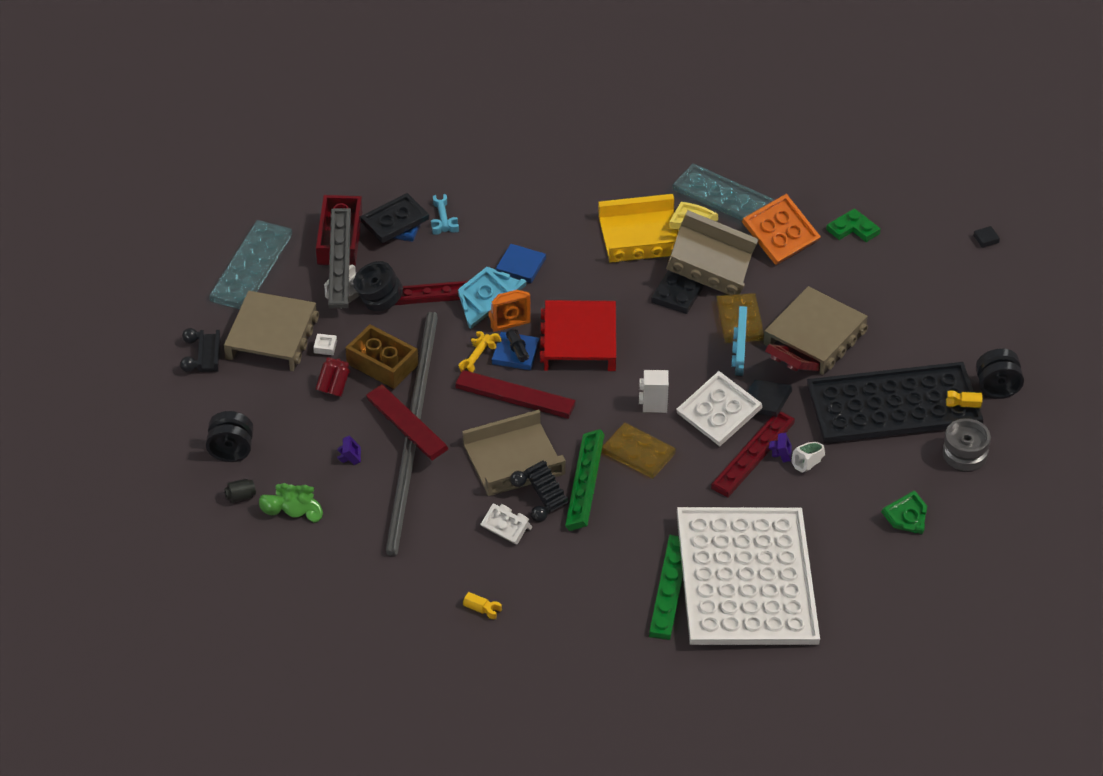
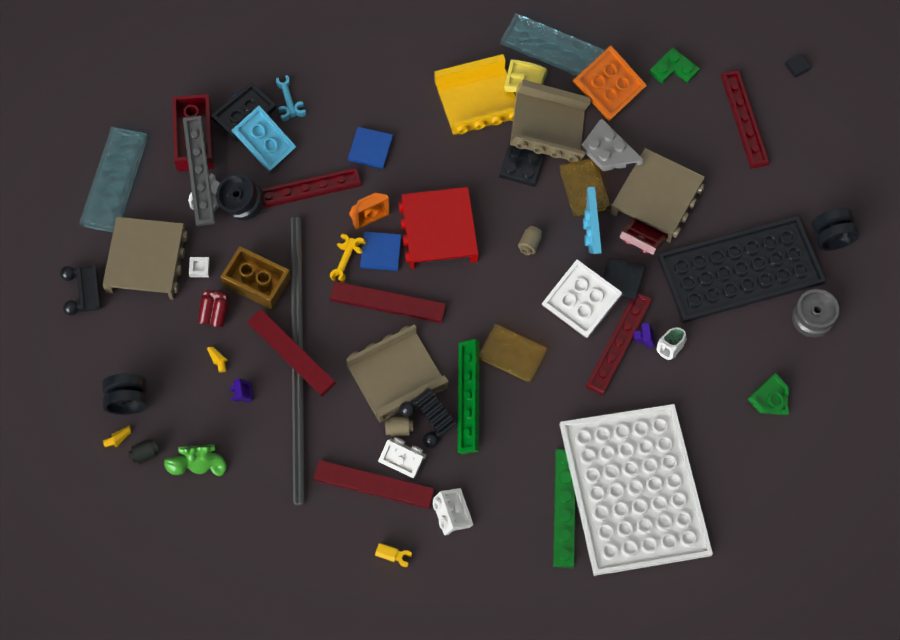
camera: 10 degrees left, 20 degrees up
(215, 478) = (117, 437): none -> yellow bar
(330, 423) = (218, 359): none -> yellow bar
(411, 241) = (263, 138): none -> medium azure plate
(473, 545) = (374, 484): none -> dark red tile
(482, 289) = (344, 190): medium azure wing -> none
(507, 496) = (398, 426): none -> dark tan brick
(517, 345) = (383, 249): black axle -> none
(550, 574) = (452, 510): none -> white bracket
(655, 391) = (519, 288): white brick -> none
(674, 355) = (530, 240): none -> dark tan brick
(770, 284) = (608, 148): none -> light grey wing
(921, 277) = (745, 119): none -> dark red tile
(964, 399) = (807, 262): yellow bar -> none

